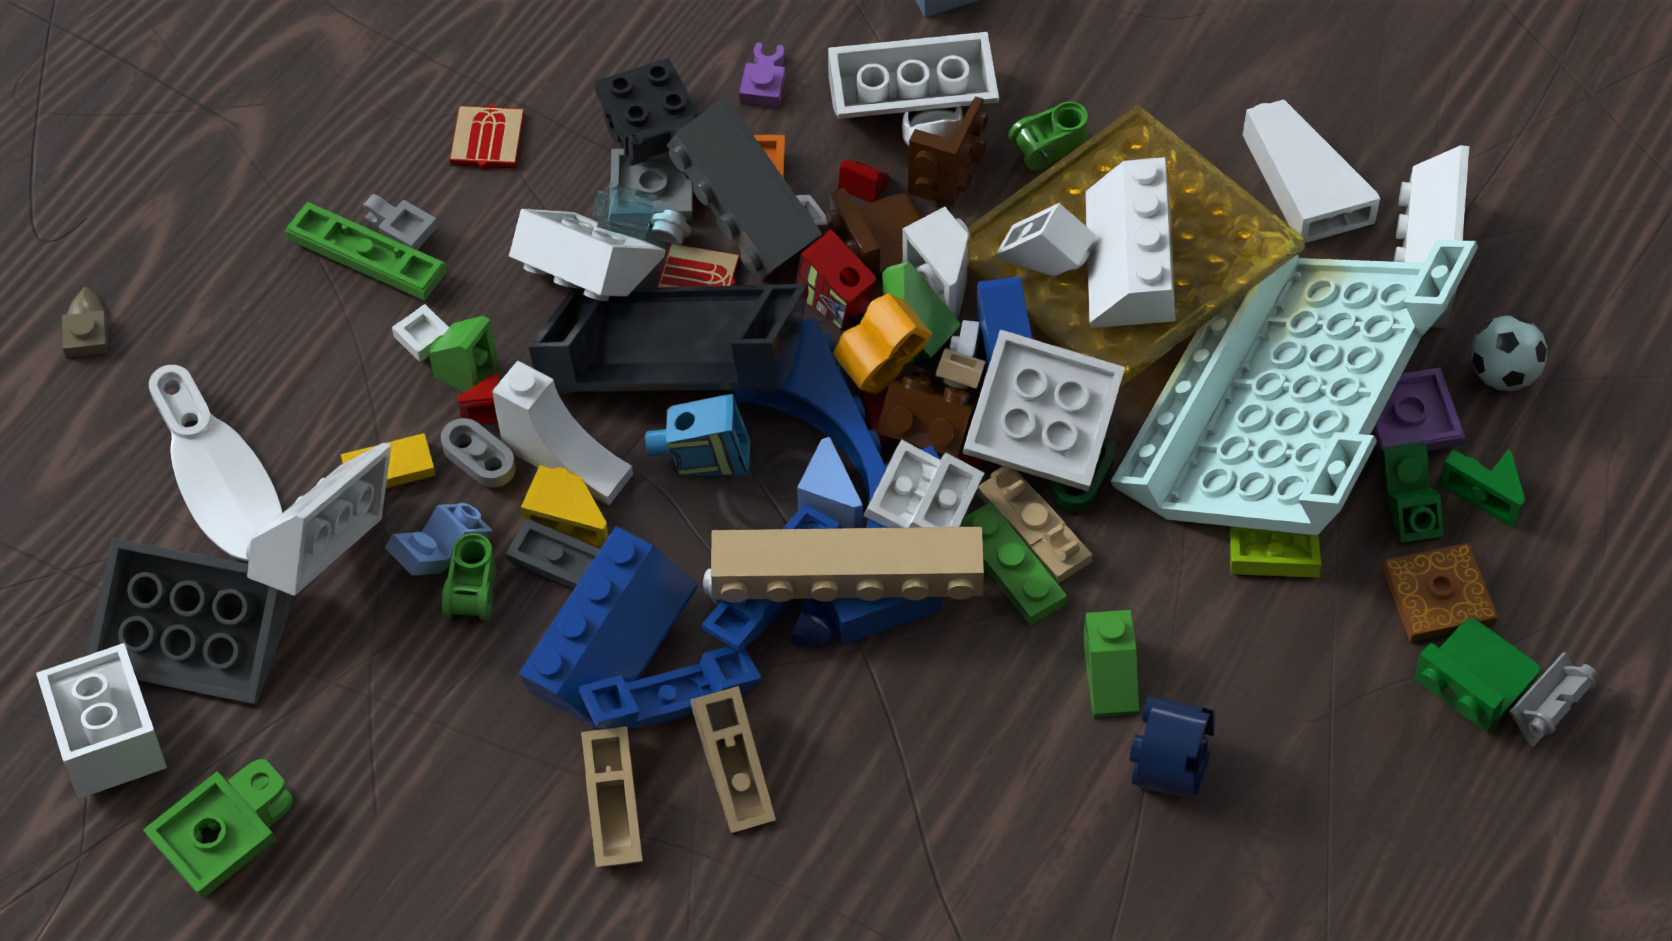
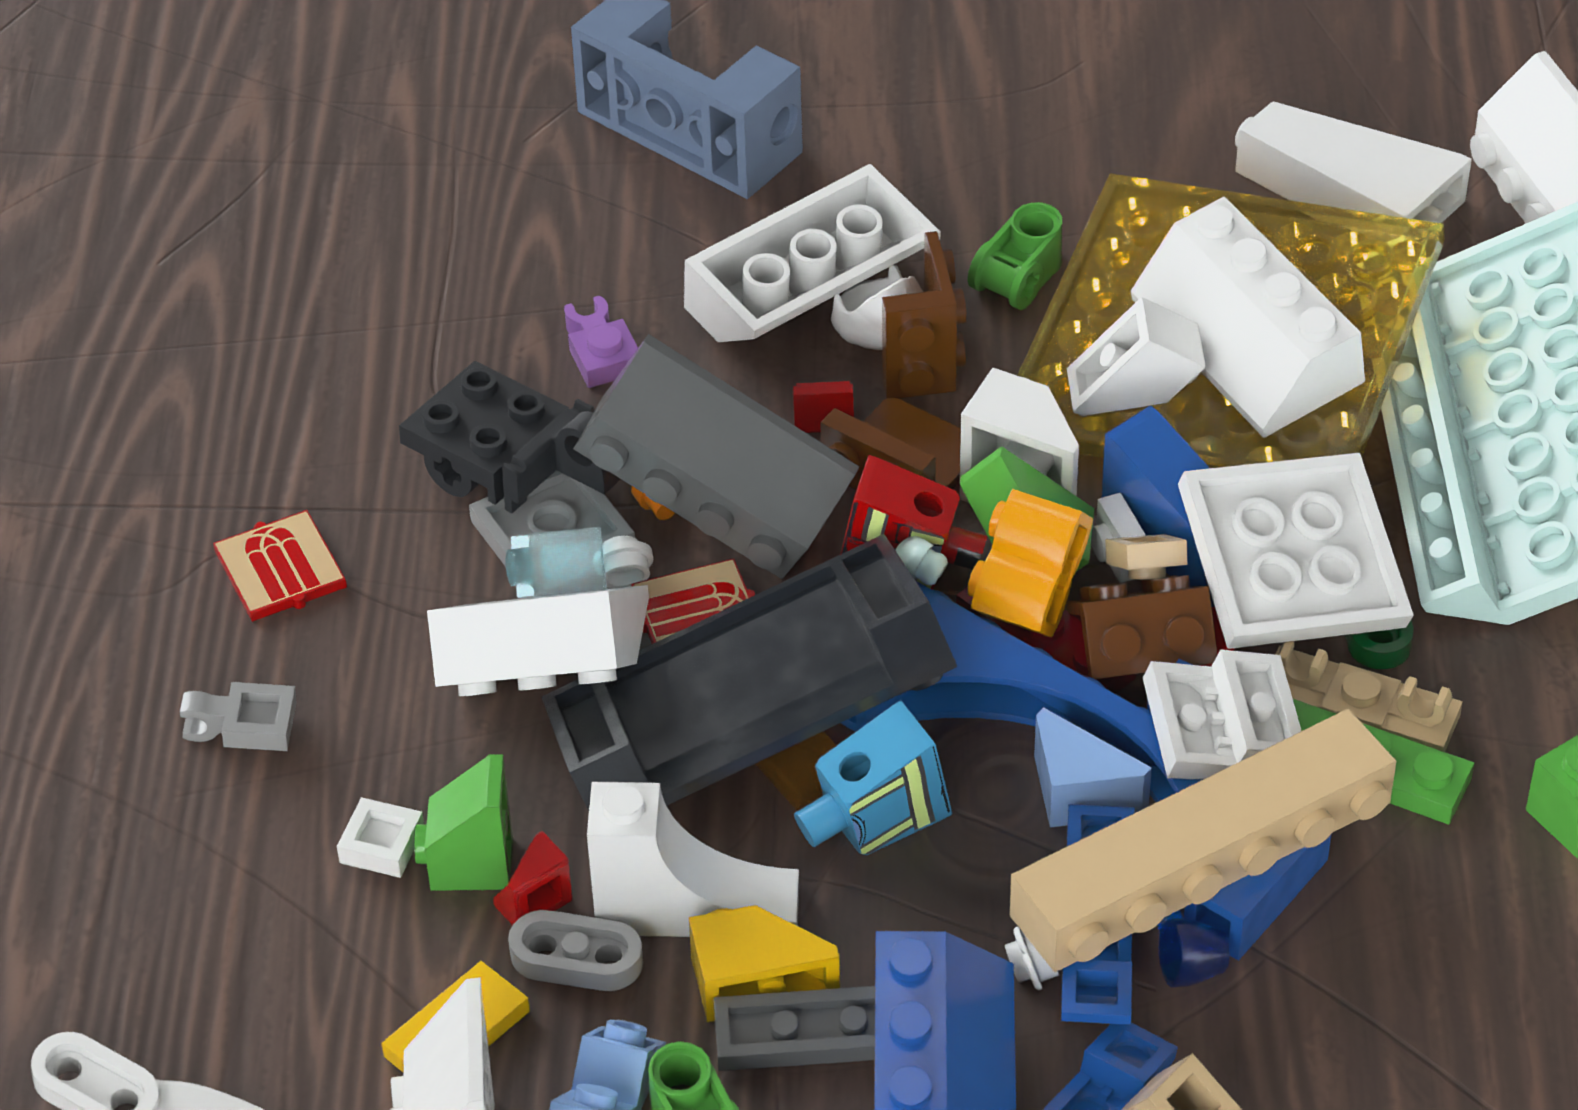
camera: 30 degrees left, 10 degrees down
(366, 251) = (219, 771): bright green plate -> none
(823, 310) = (921, 559): none -> light aqua arm

